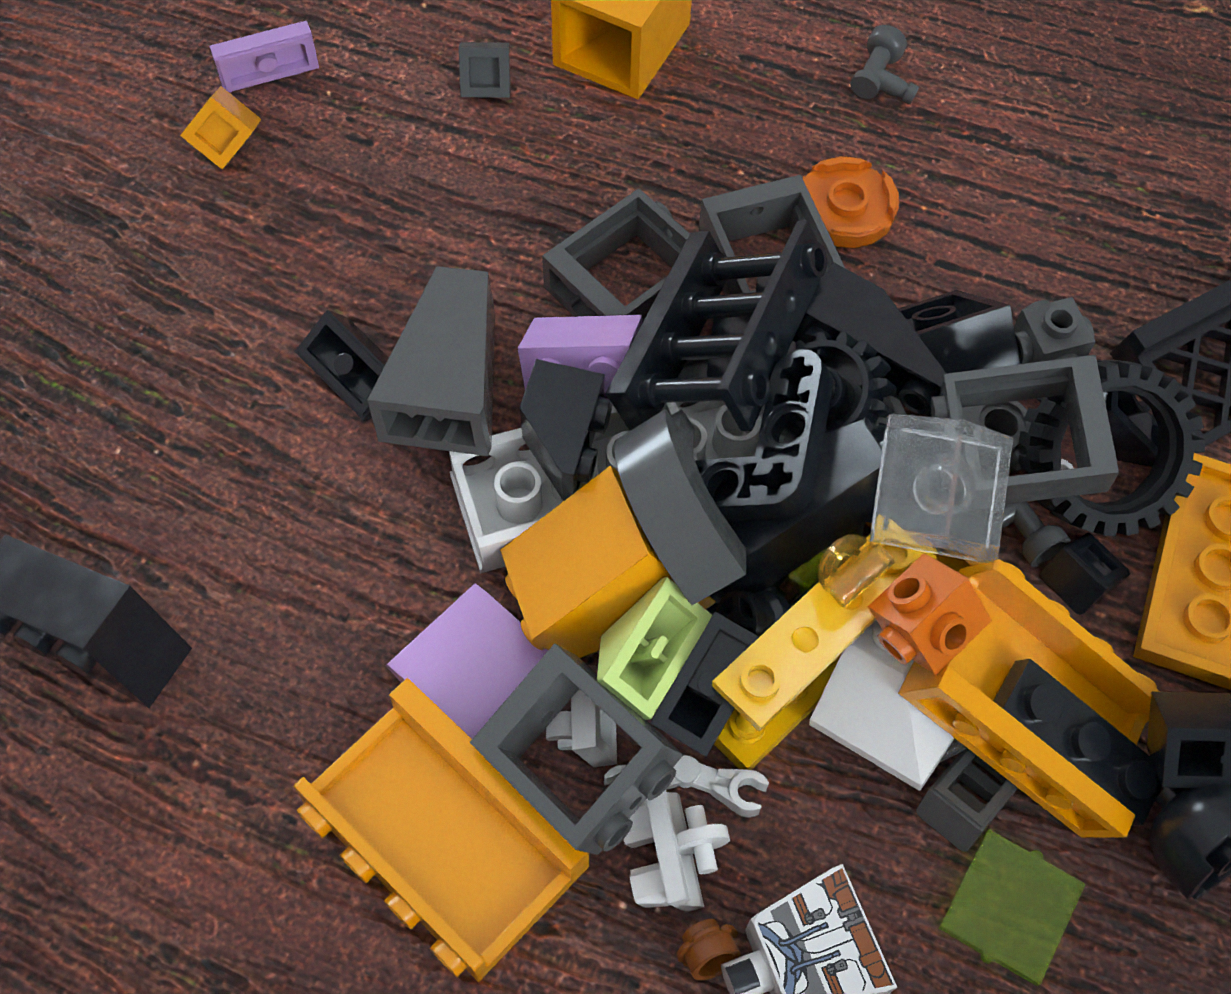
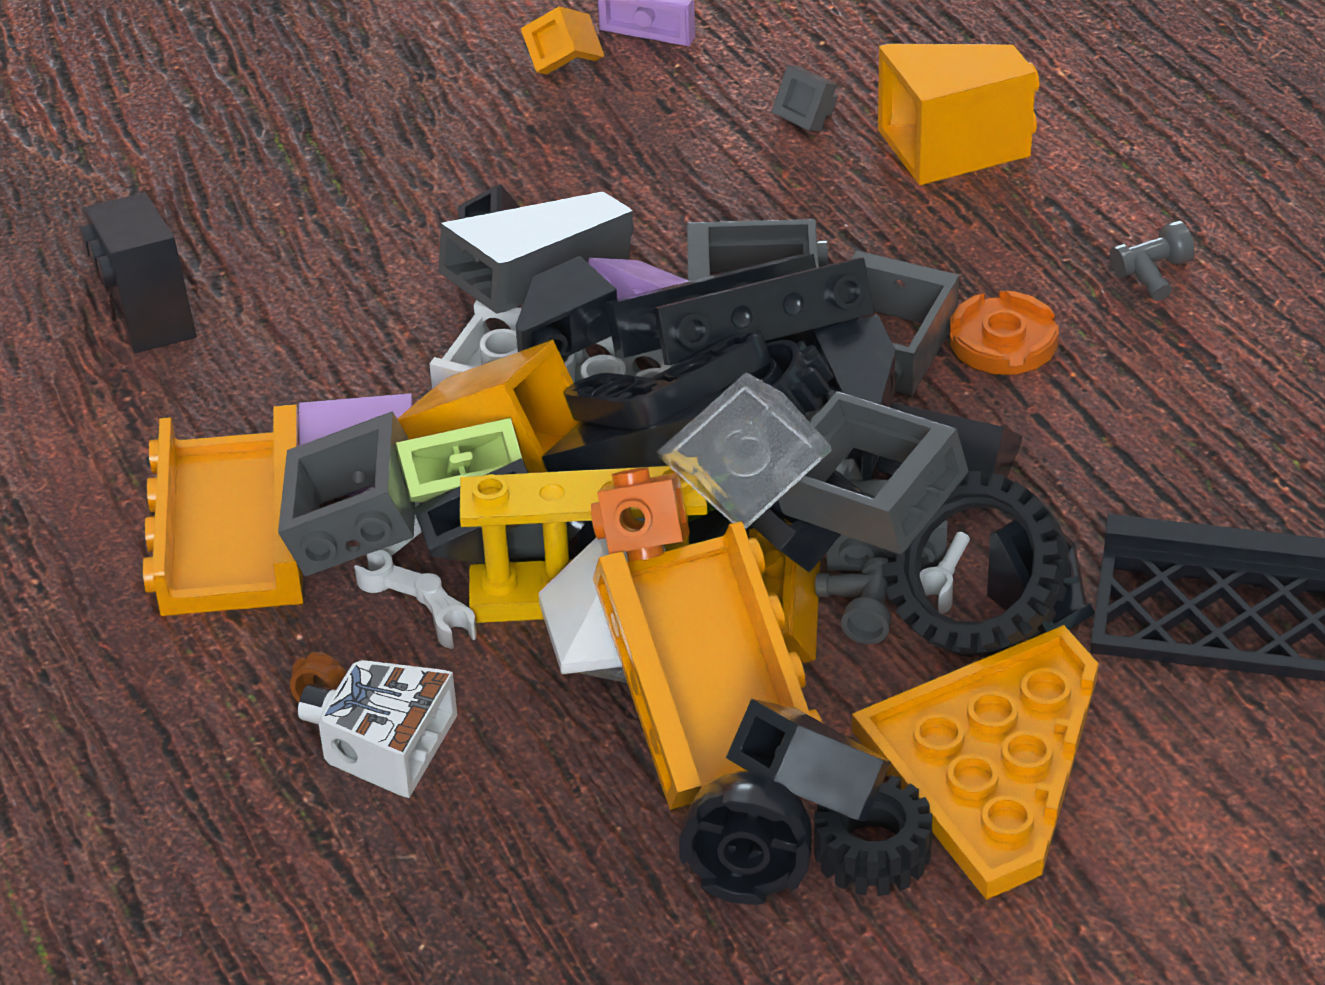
camera: 45 degrees right, 20 degrees down
(674, 877) = (364, 607): white hips -> none
(677, 507) = (554, 379): dark grey arch -> none
(852, 567) = (618, 451): clear yellow plate -> none
(955, 810) = (602, 723): dark grey slope -> none
(1012, 907) = (563, 808): clear neon green piece -> none
(1052, 331) = (1051, 480): dark grey brick -> none
(1080, 736) = (703, 694): black plate -> none
(1084, 573) = (884, 660): black slope -> none

